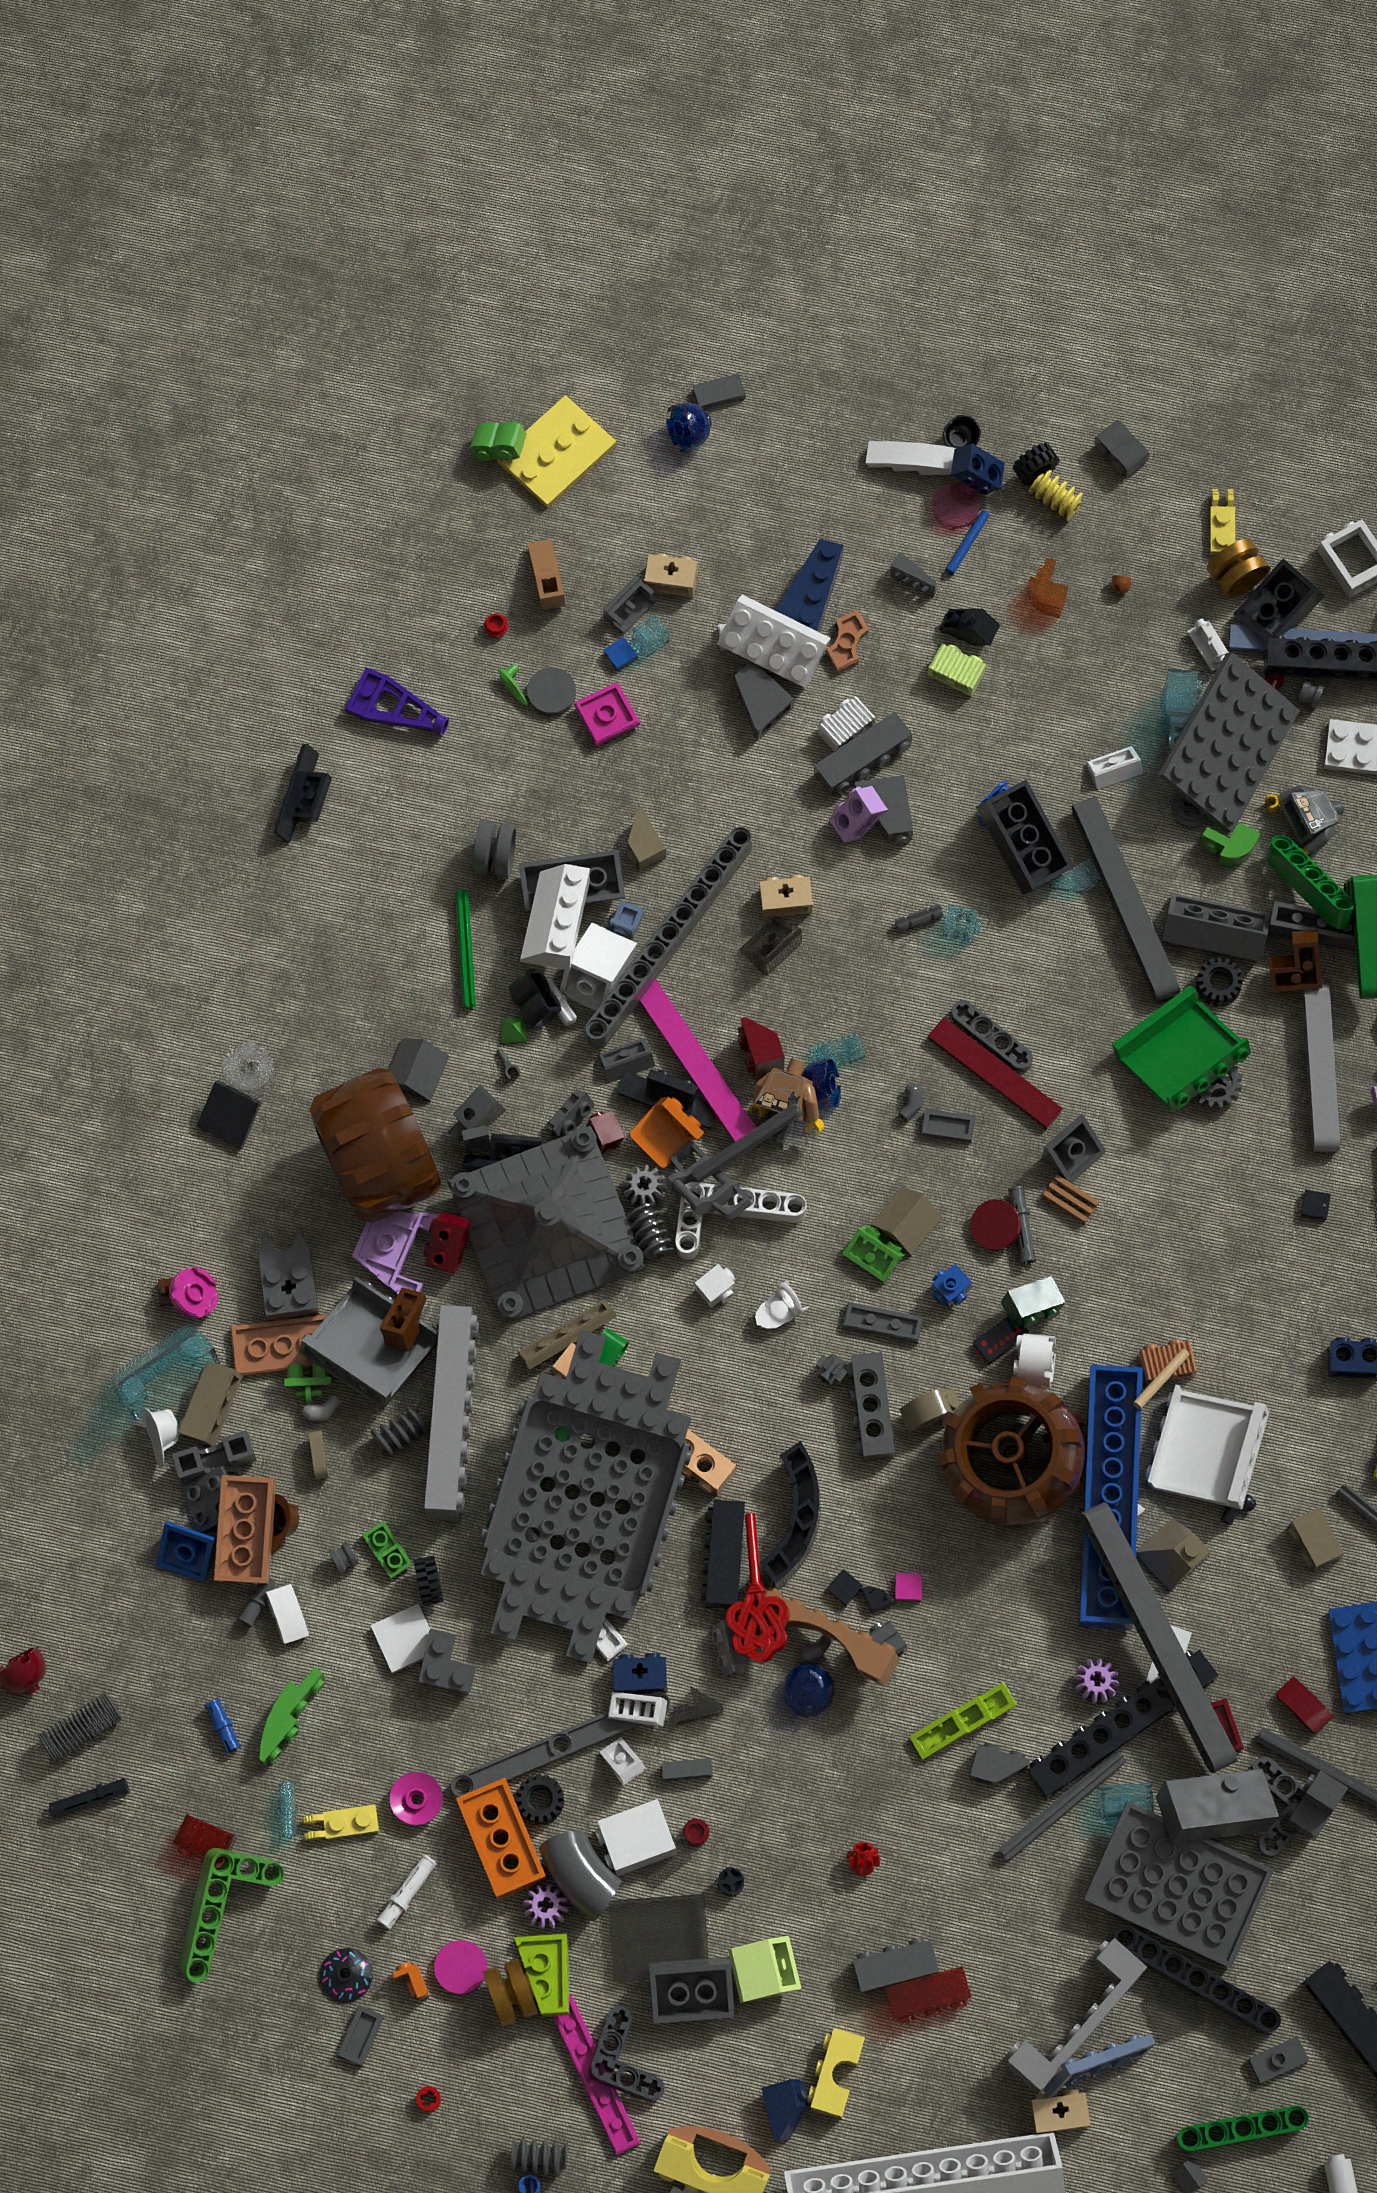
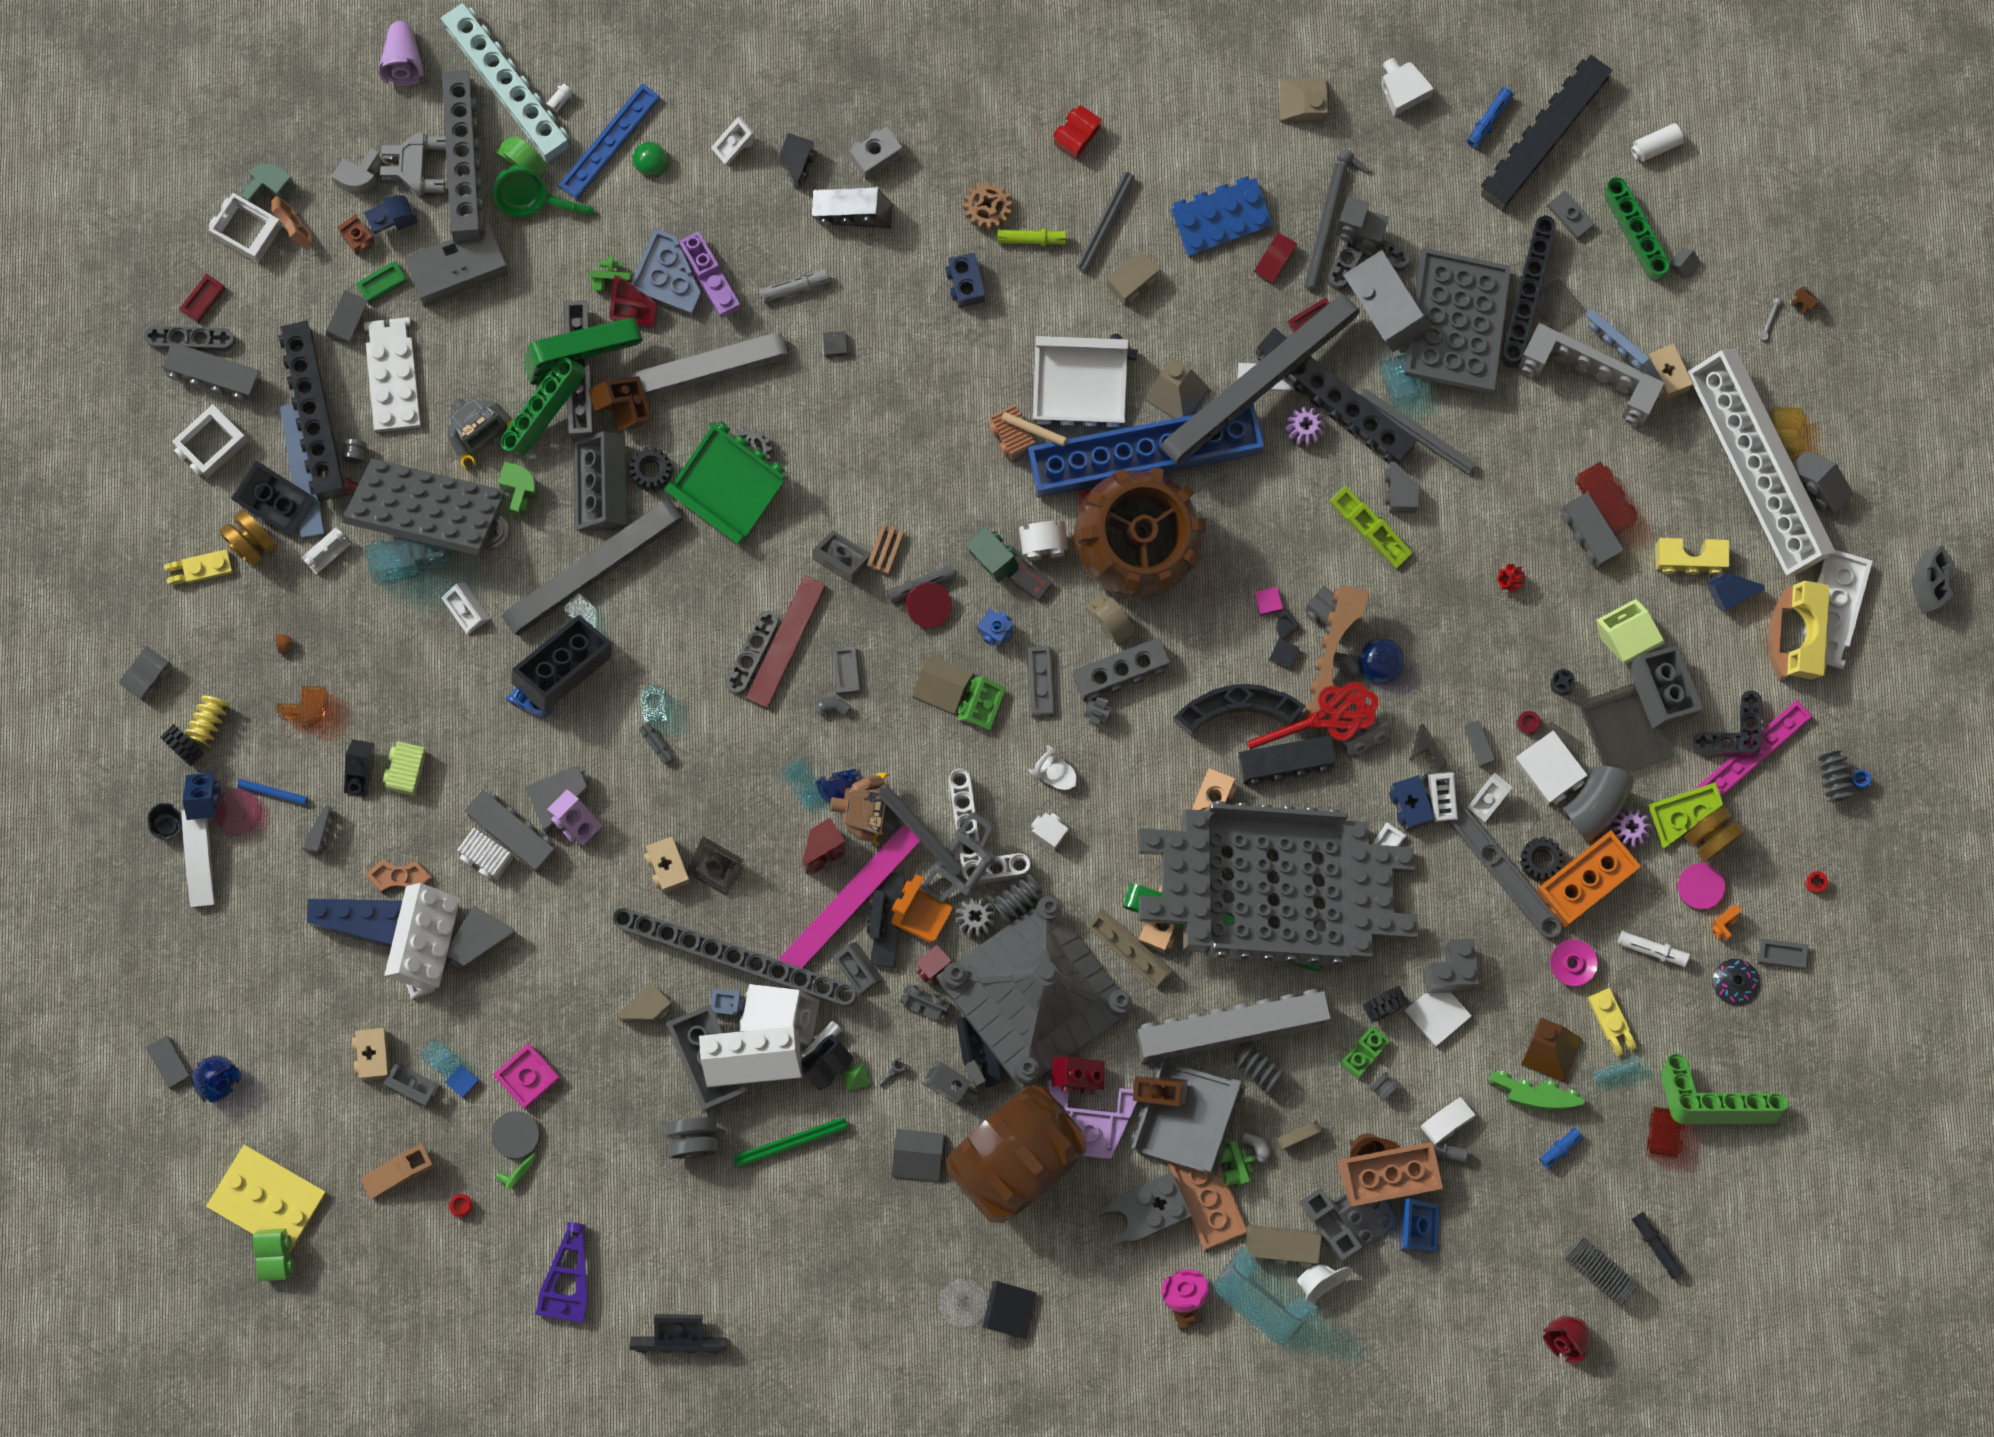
camera: 110 degrees left, 5 degrees up
(330, 1748) = (1551, 1049): none -> reddish brown slope

